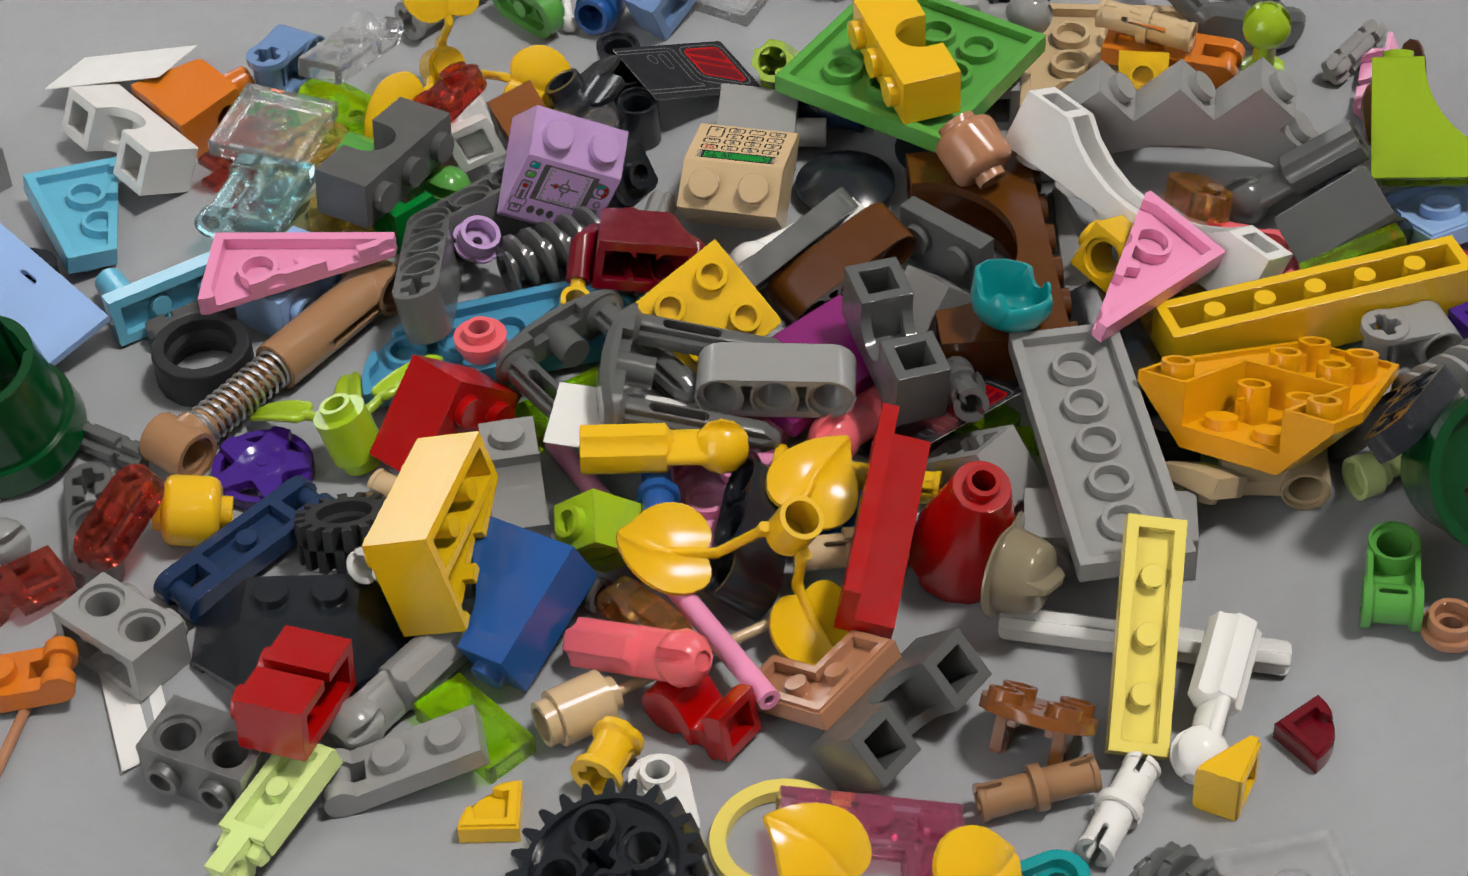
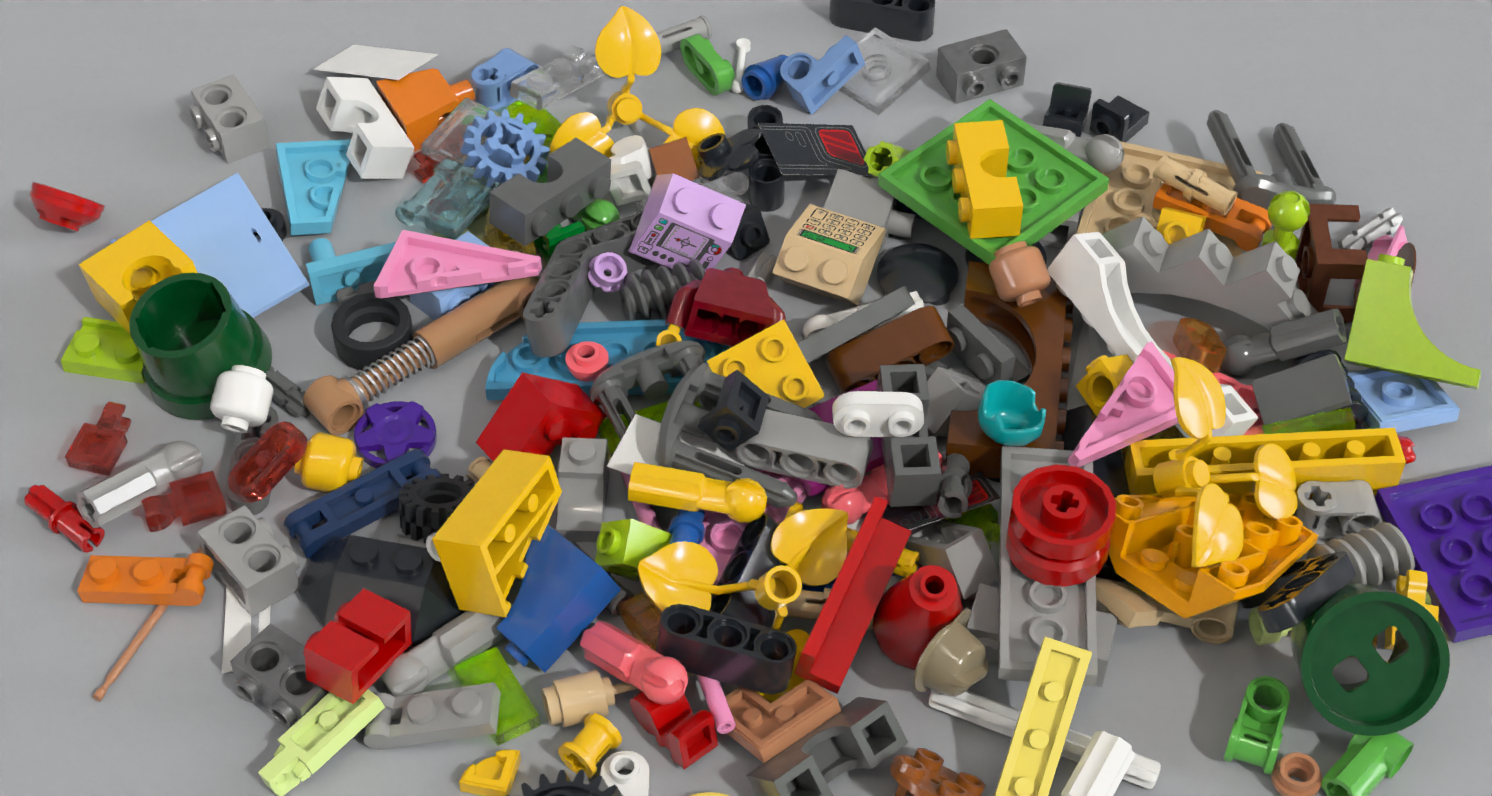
camera: 10 degrees right, 5 degrees up
(65, 455) = (241, 398): none -> white head
(314, 124) = (504, 148): none -> medium blue gear
(342, 418) = (461, 410): lime plant -> none
(455, 89) = (622, 137): clear red plate -> none
(689, 350) = (737, 412): none -> black bracket
(750, 609) = (727, 648): none -> black beam
(860, 317) = (878, 414): none -> white plate
(1107, 396) = (1060, 525): none -> red wheel
(1290, 355) = (1217, 524): none -> yellow plant
(1320, 79) = (1321, 262): none -> copper panel

